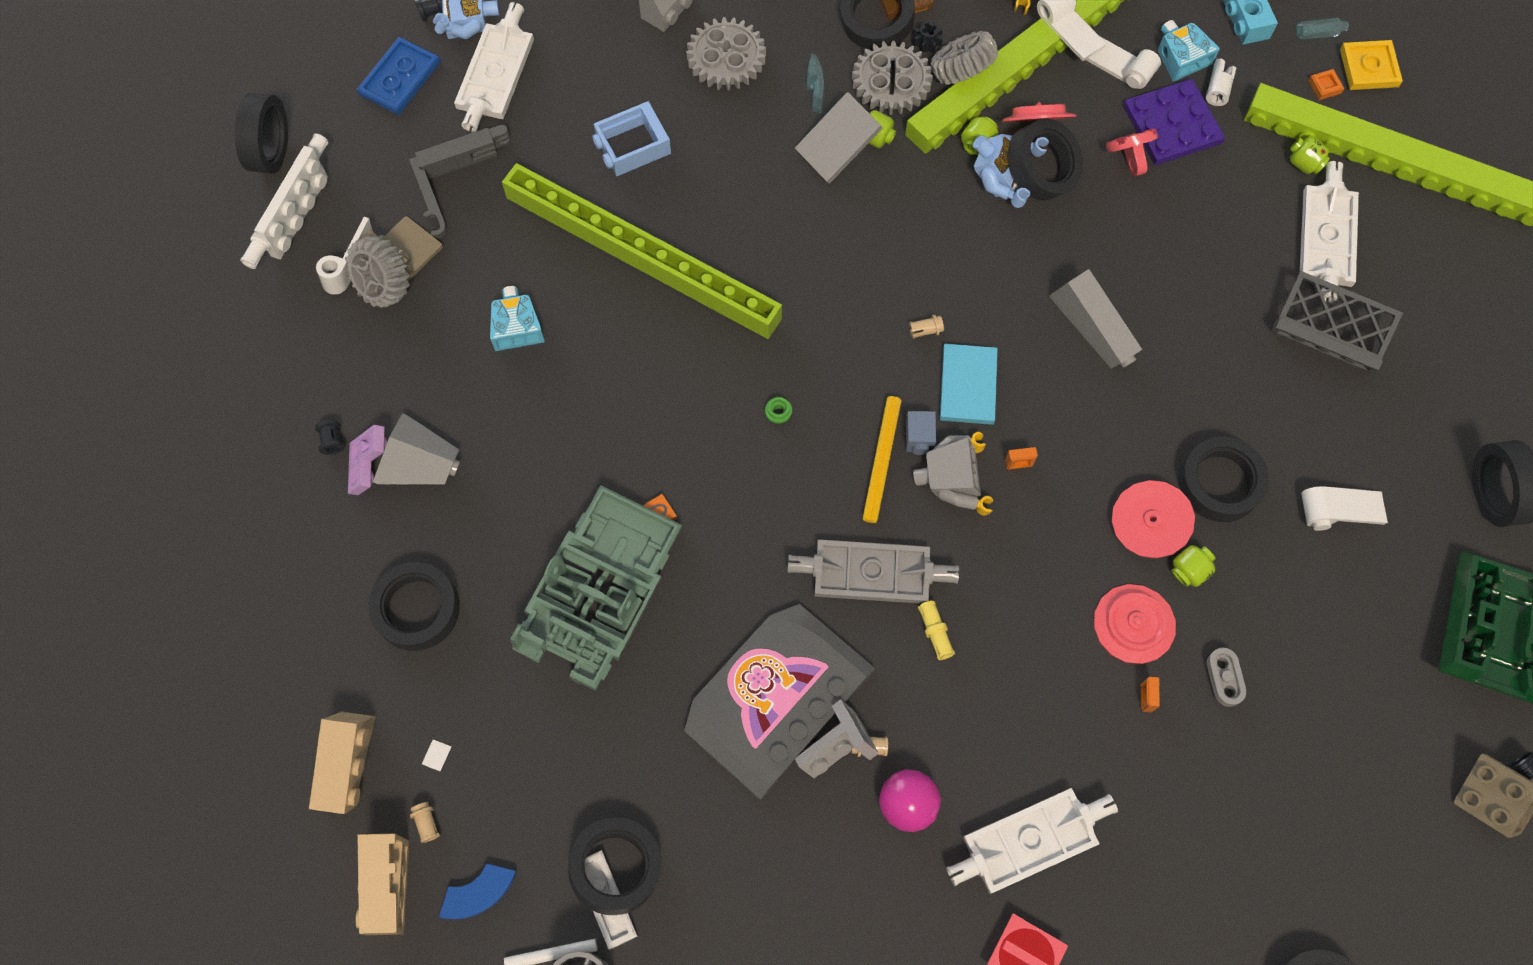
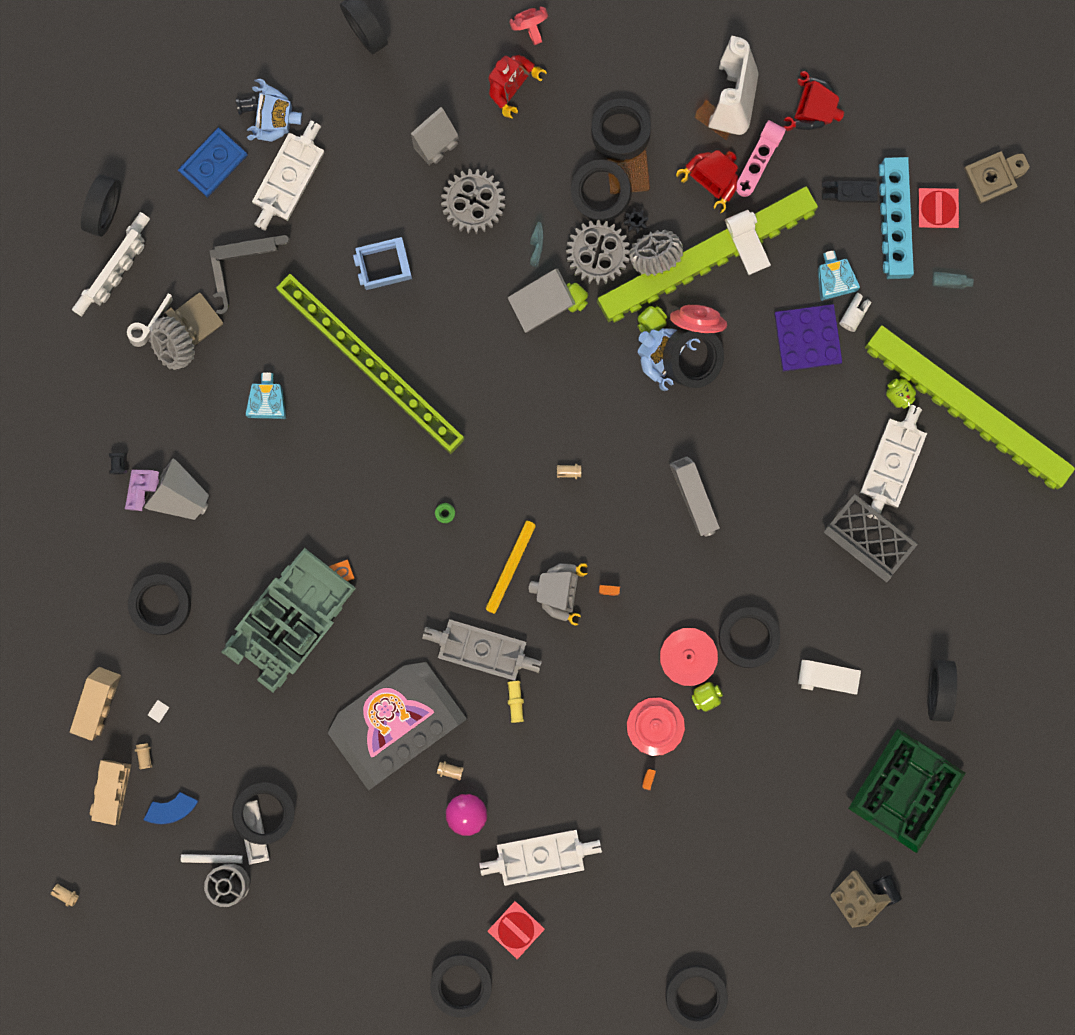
camera: 10 degrees right, 15 degrees up
(837, 743) = (434, 764): light grey bracket -> none
(920, 432) = (542, 554): sand blue brick -> none
(968, 384) = (588, 522): medium azure tile -> none
(1125, 66) = (785, 277): white door -> none
(1134, 149) = (765, 355): coral tile -> none
(1229, 678) = (703, 778): light grey plate -> none
(1326, 84) = (939, 331): orange tile -> none
(1371, 65) = (978, 323): yellow plate -> none

